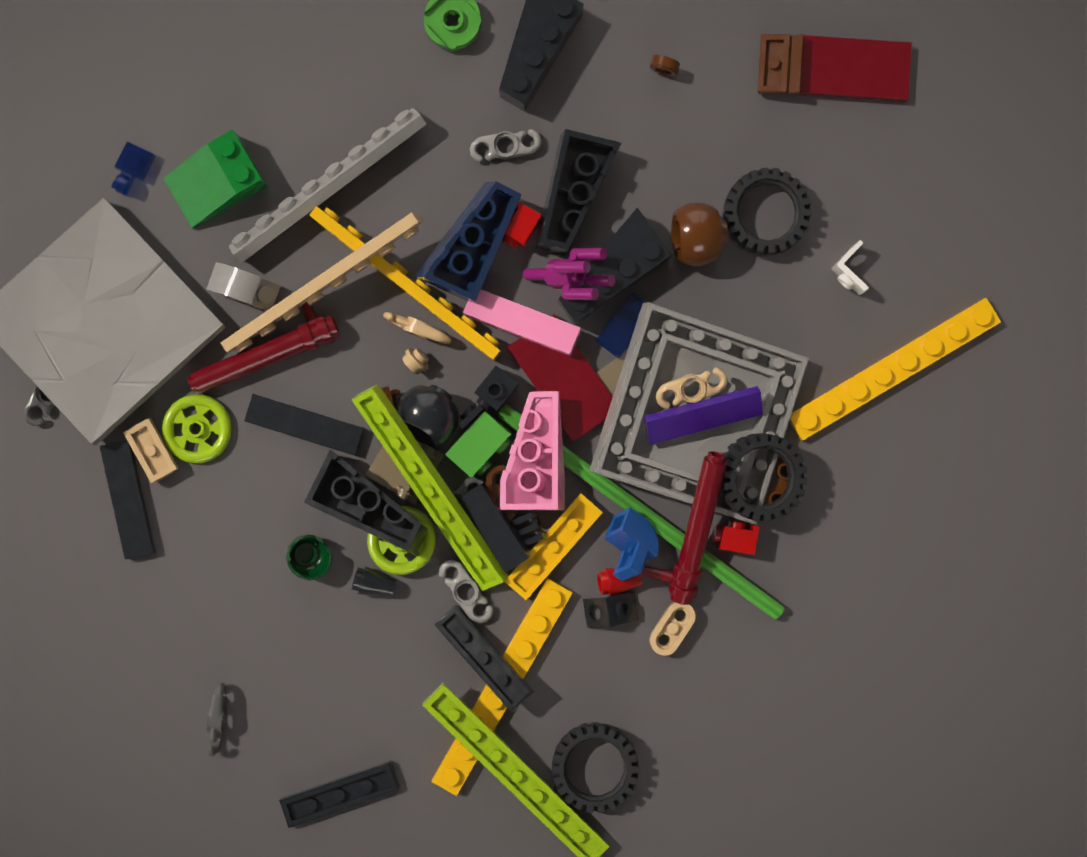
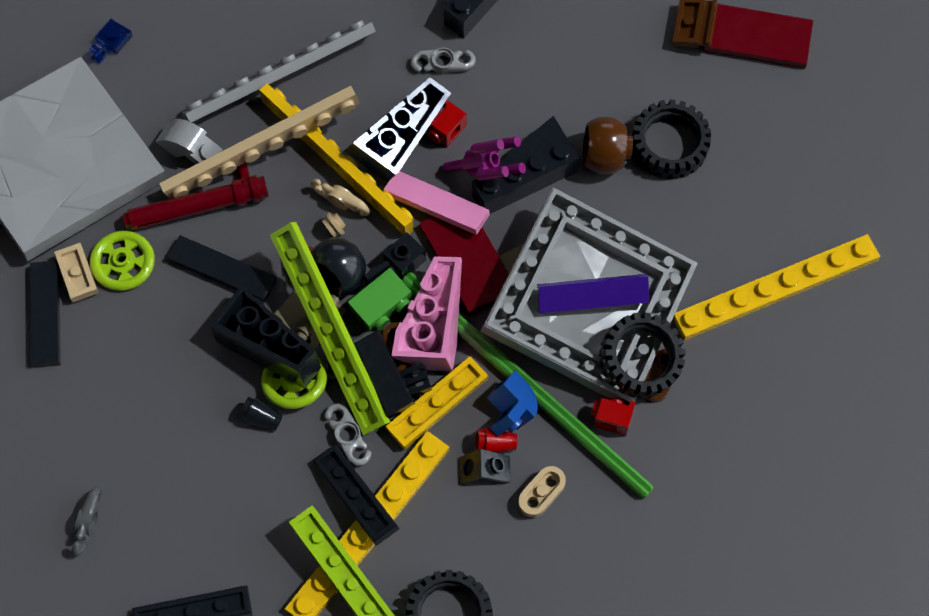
camera: 10 degrees right, 20 degrees down
(214, 179) = (181, 56): green slope -> none
(308, 557) = (203, 381): dark green hair -> none
(574, 182) = (500, 94): black wedge -> none
(620, 329) = (522, 221): clear blue slope -> none
(664, 65) = (592, 12): reddish brown tile -> none
(688, 569) = (562, 437): dark red cylinder -> none
(705, 389) = (595, 261): tan piece -> none
(846, 276) = (739, 199): white bracket -> none

